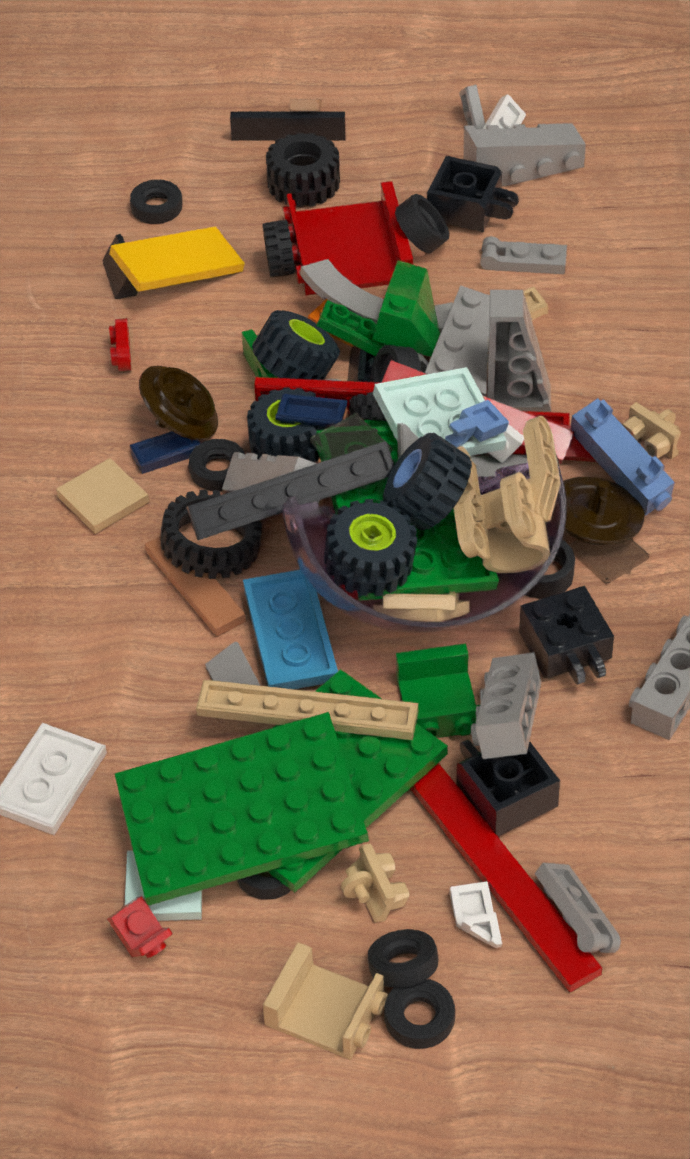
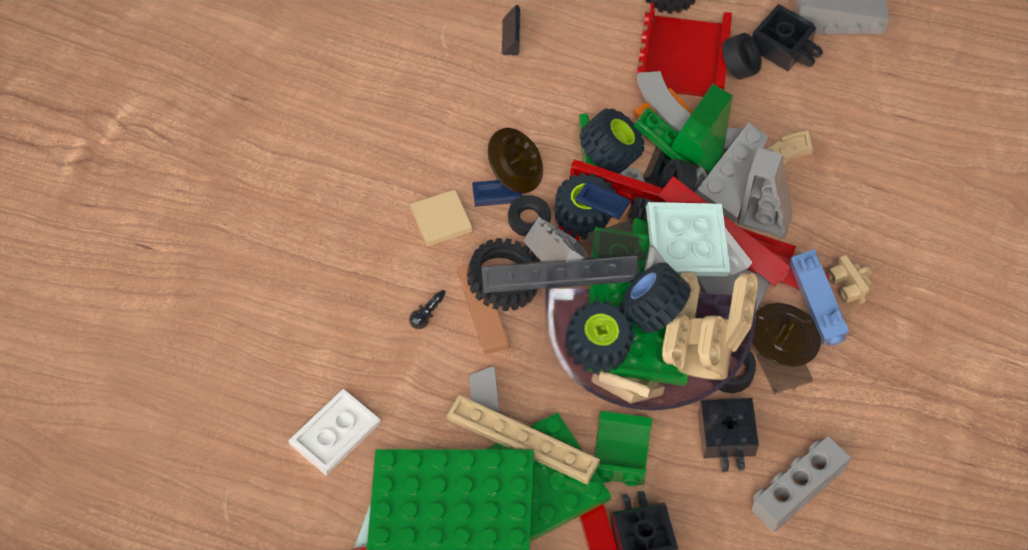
camera: 15 degrees right, 10 degrees up
(116, 616) = (420, 318): none -> black bar
(121, 353) = (490, 105): red plate -> none
(176, 258) = (553, 36): yellow tile -> none
(278, 248) = (629, 48): black tyre -> none
(289, 630) = (533, 370): dark azure plate -> none
(478, 420) = (713, 254): medium blue plate -> none
(507, 706) = (662, 479): light grey brick -> none
(523, 256) = (810, 101): light grey plate -> none

